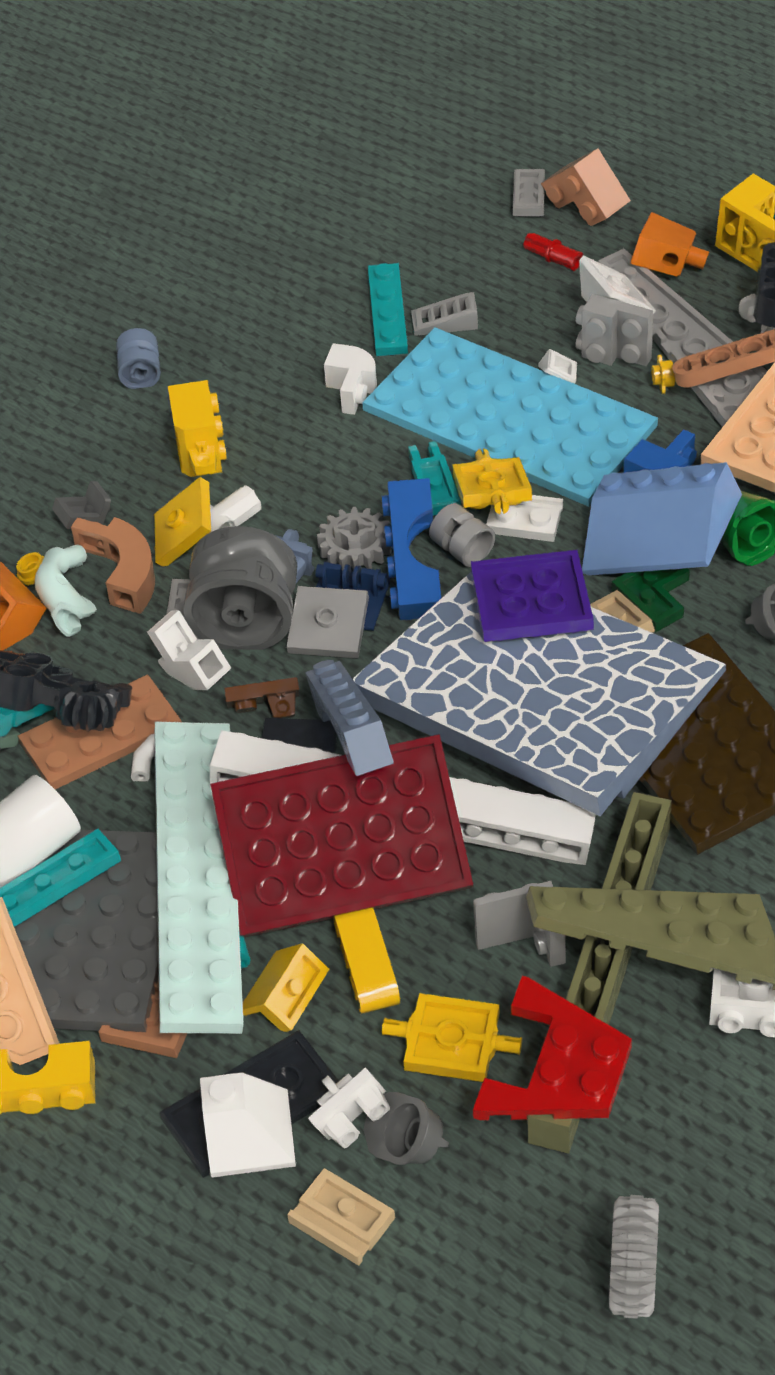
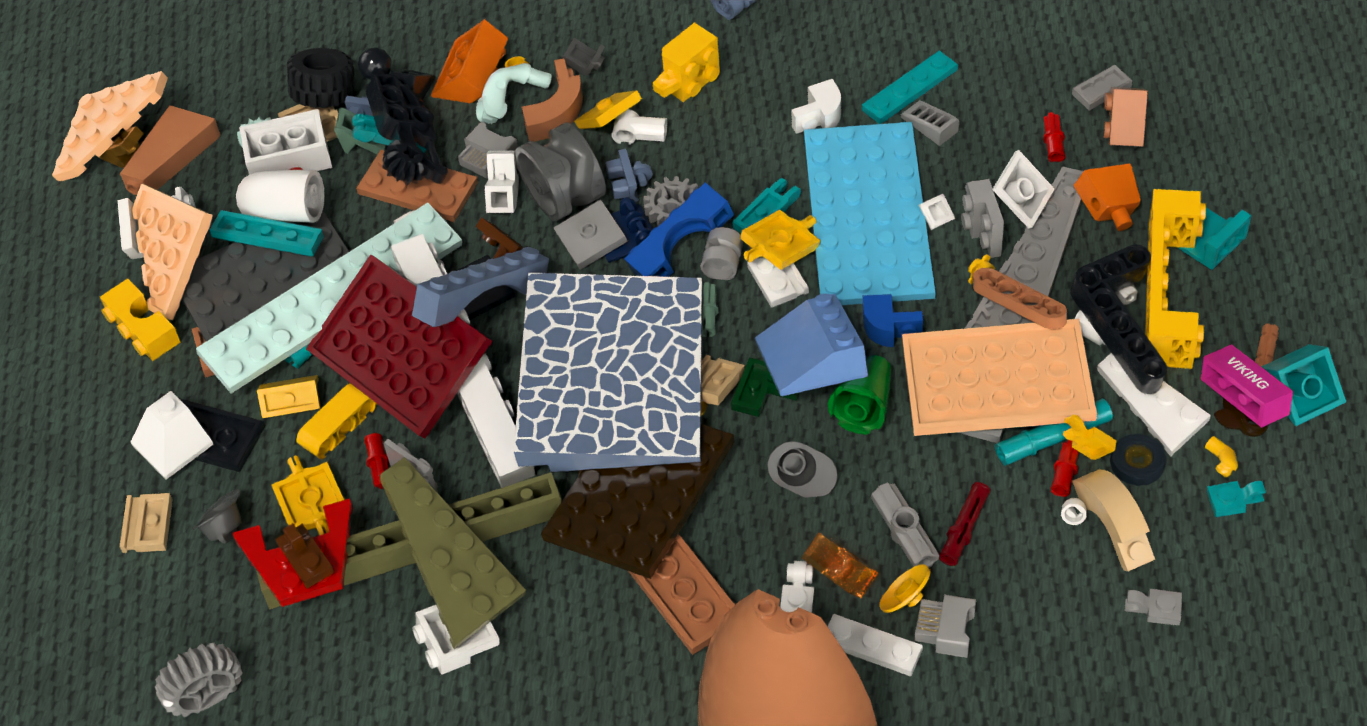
camera: 55 degrees right, 5 degrees up
(122, 647) = (479, 143): none -> light grey piece
(345, 1103) = (218, 474): white hips -> none
(454, 950) = (377, 459): none -> red axle
(531, 596) = (675, 318): dark purple plate -> none
(577, 1047) = (304, 555): none -> reddish brown hinge

